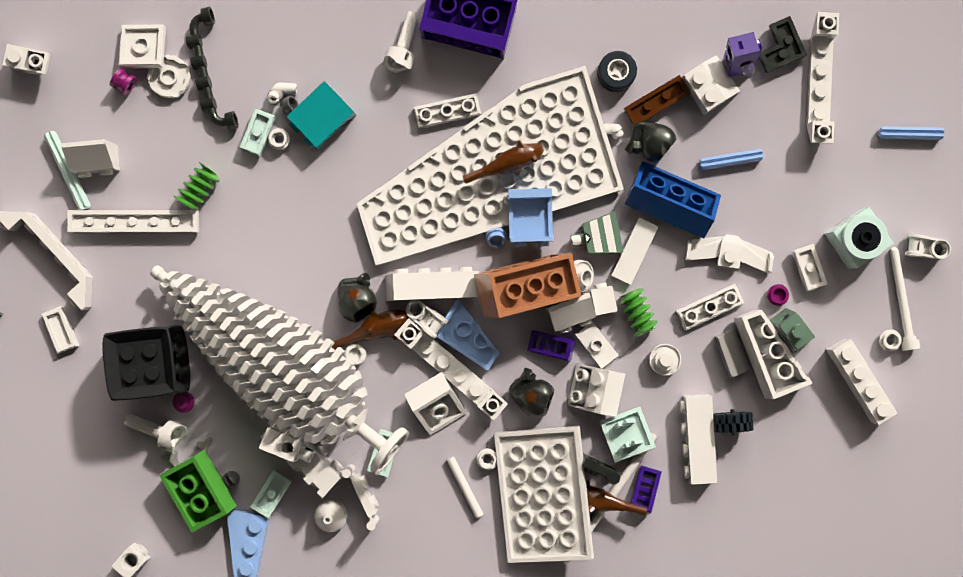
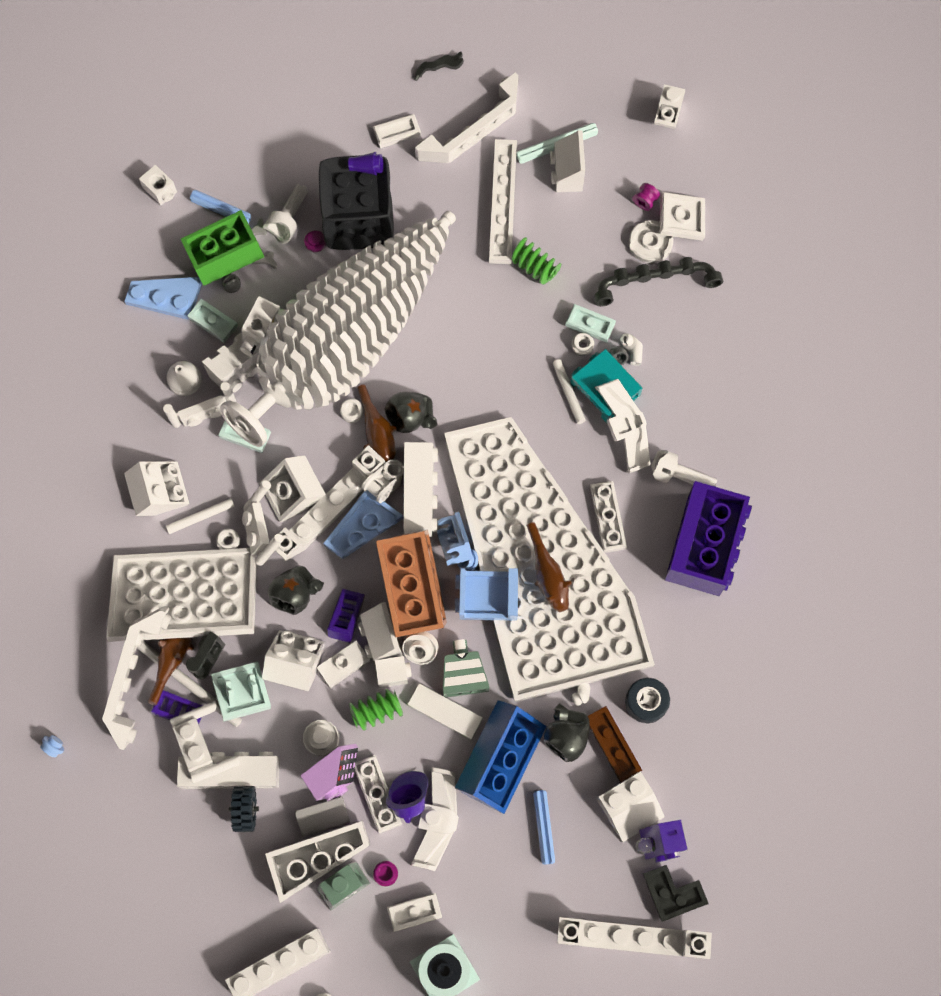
camera: 90 degrees right, 15 degrees down
(113, 351) = (368, 163): none -> dark purple cone
(150, 499) = (216, 205): none -> light blue axle
(326, 151) = (569, 392): none -> white bar
(360, 95) = (627, 424): none -> white plate
(441, 530) = (156, 487): none -> white slope
(478, 433) = (256, 529): none -> white plate
(480, 250) = (454, 540): none -> light blue hinge
(581, 521) = (121, 727): none -> white slope
(682, 470) = (194, 746): none -> white plate
(701, 346) = (332, 773): none -> lavender slope
(711, 279) = (408, 795): none -> dark purple piece

